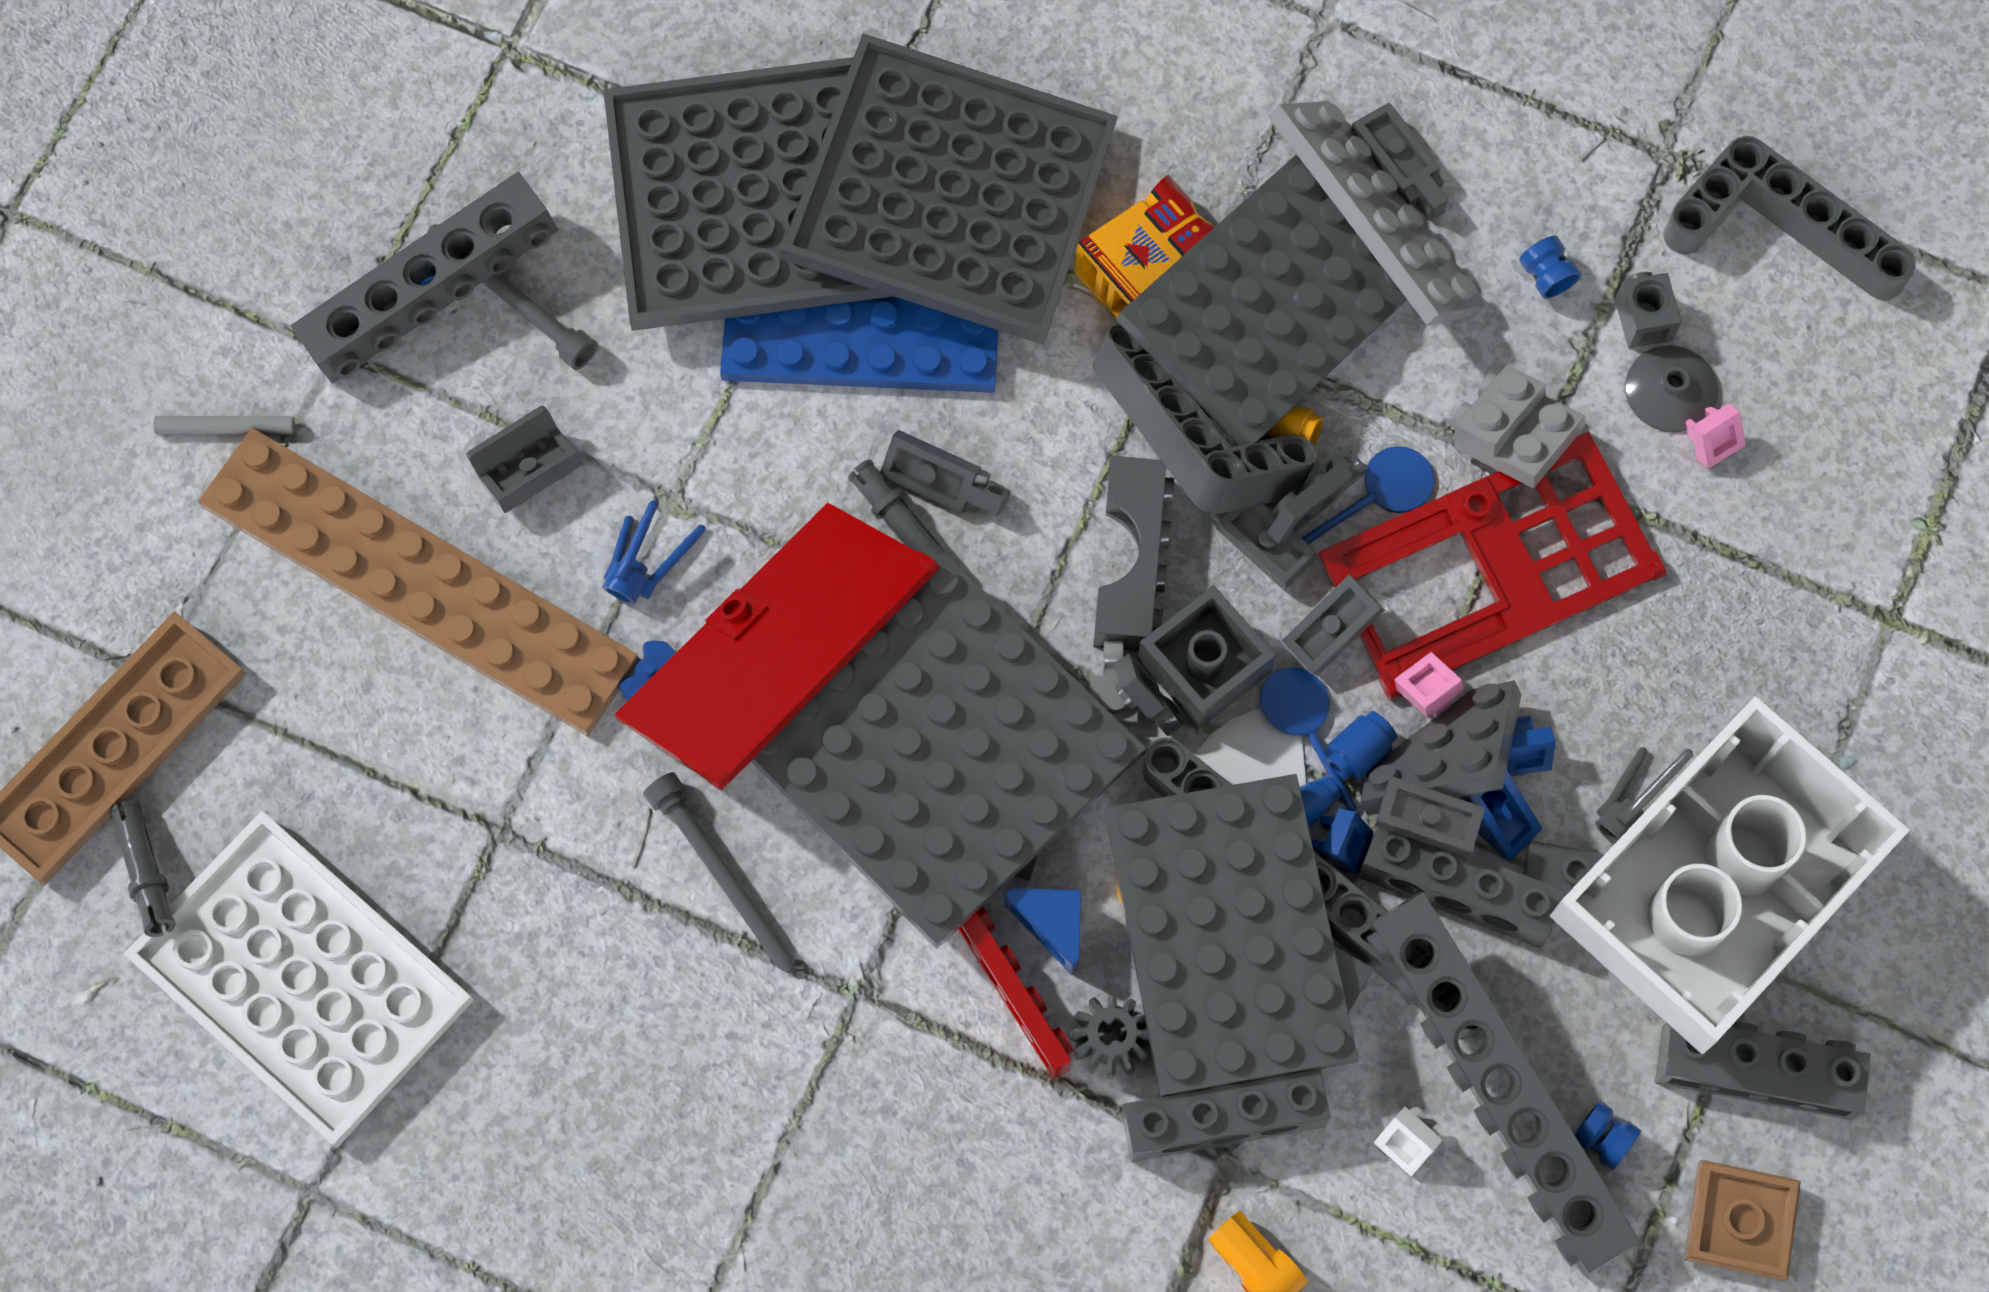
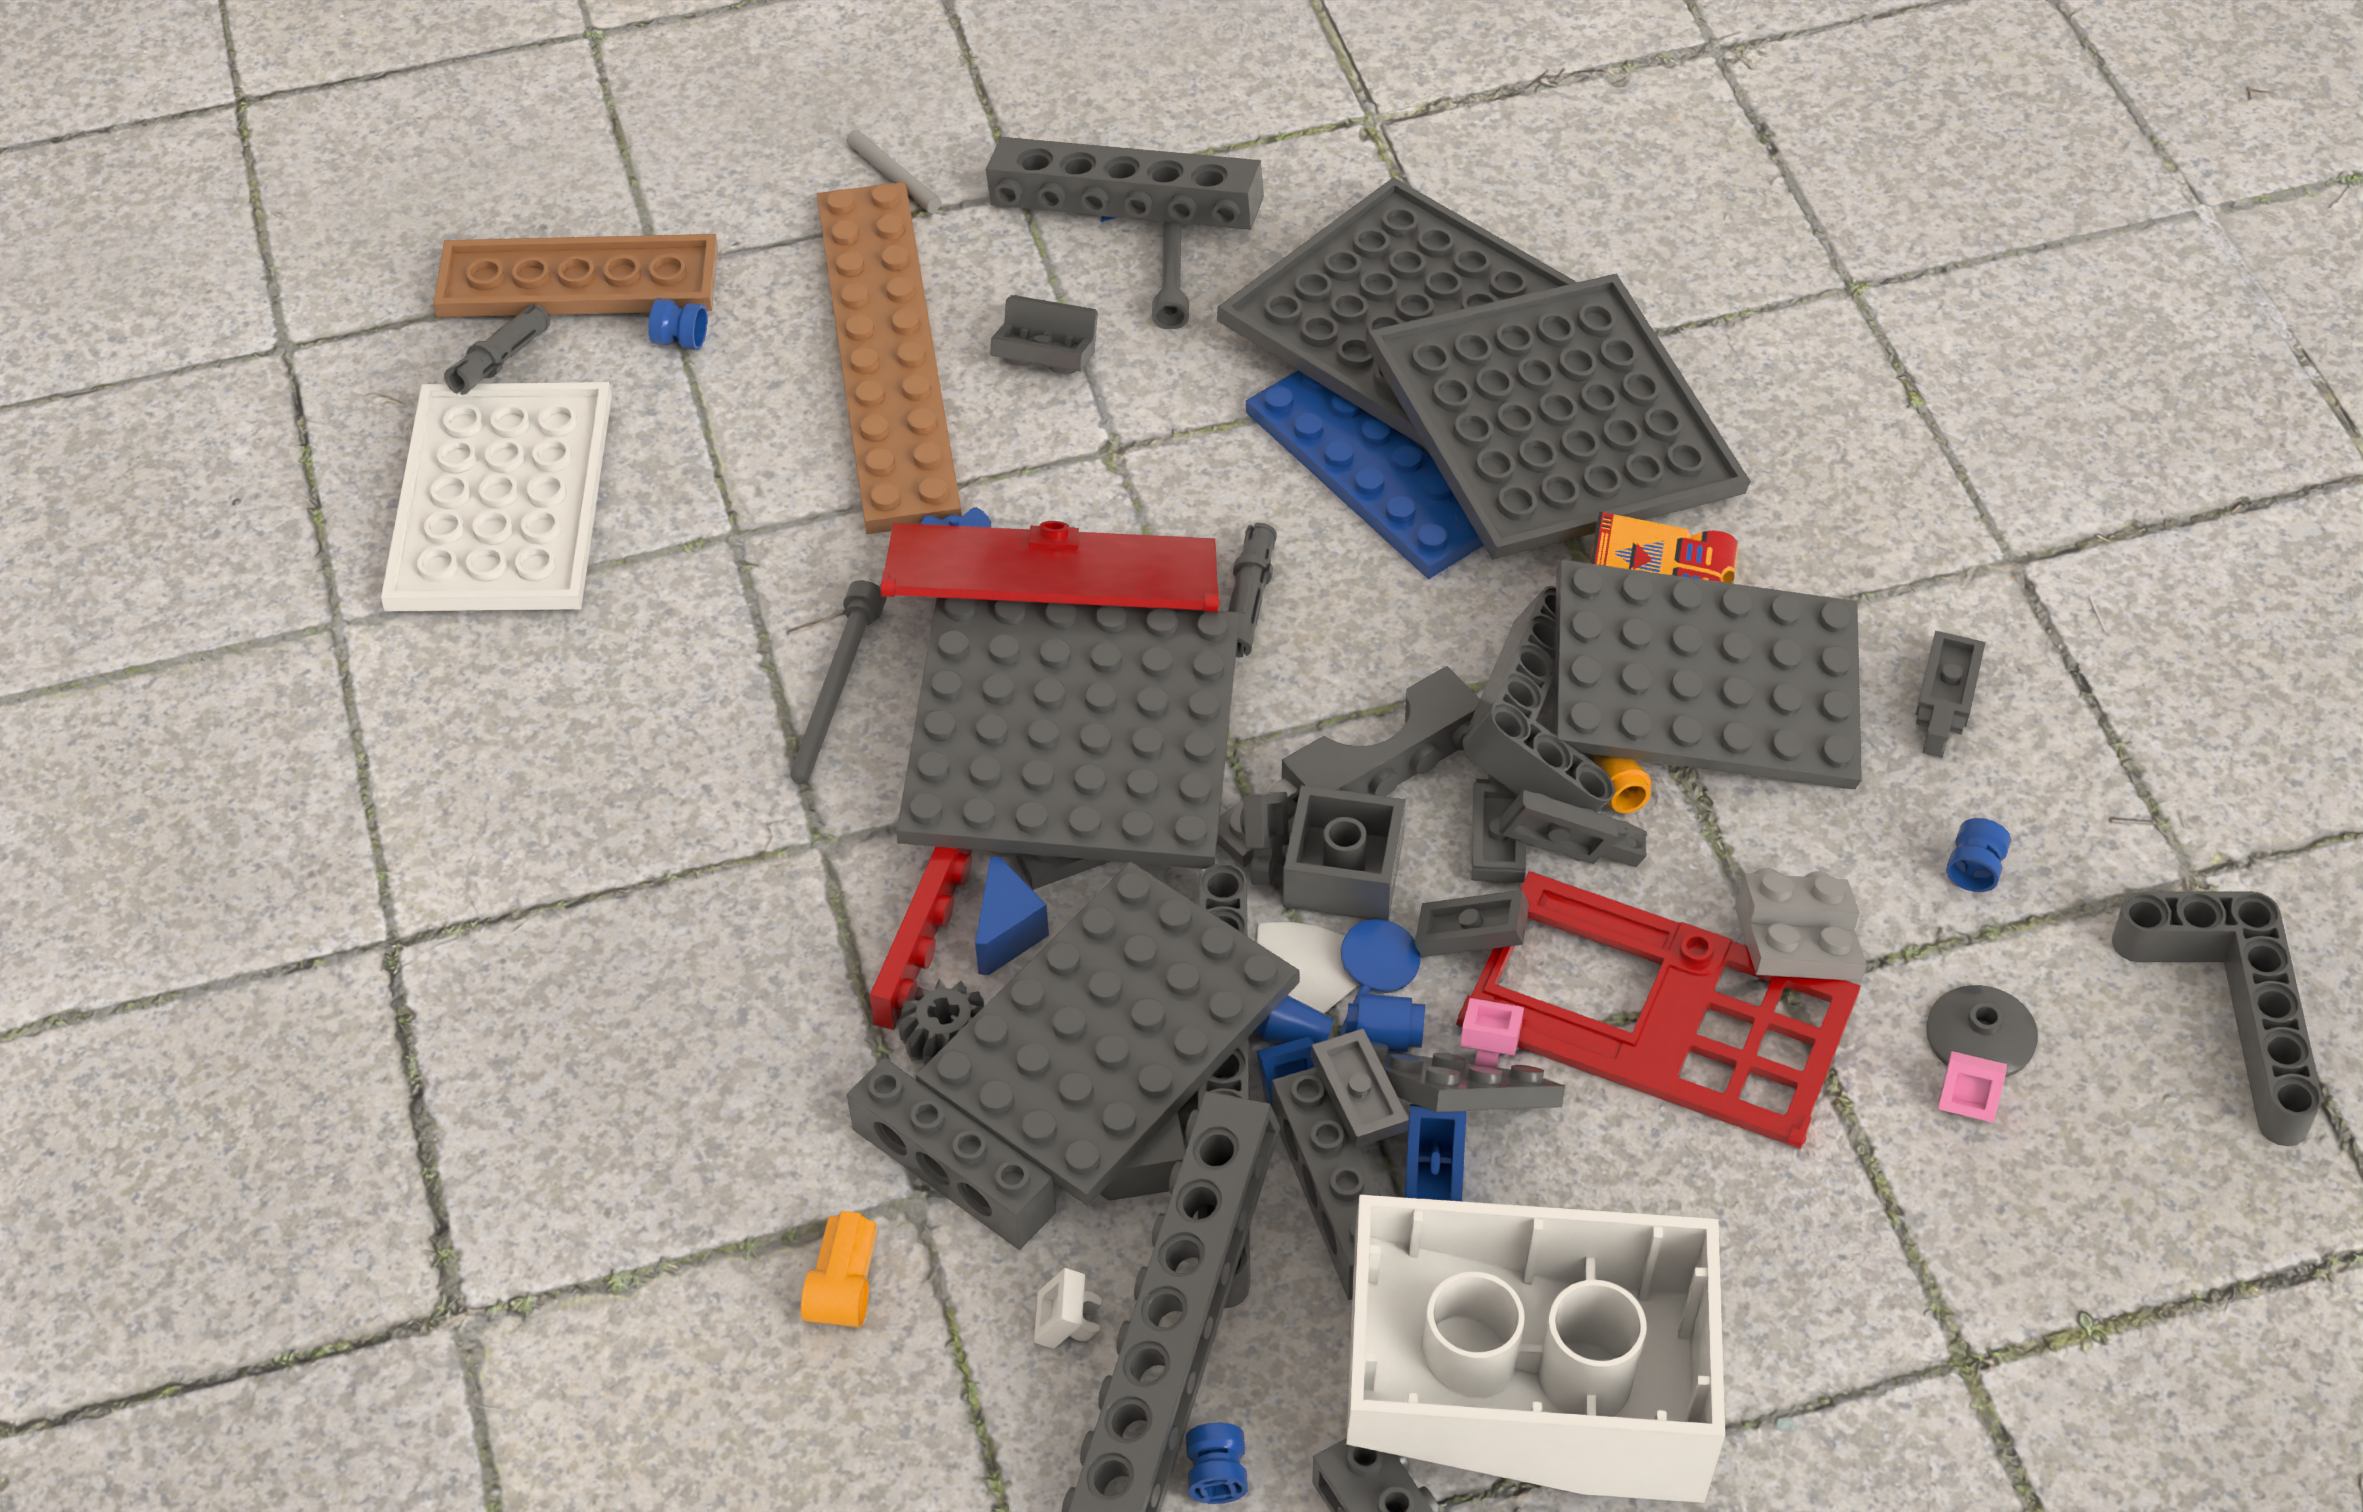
camera: 50 degrees right, 20 degrees down
(244, 712) = (677, 324): none -> blue wheel
(625, 575) = (1017, 457): blue plant -> none
(941, 476) = (1313, 586): dark grey hinge -> none
(1377, 211) = (1873, 697): light grey plate -> none
(1395, 480) = (1654, 887): blue piece -> none
(1531, 748) = (1515, 1146): blue tile -> none
(1642, 326) = (2025, 952): dark grey brick -> none

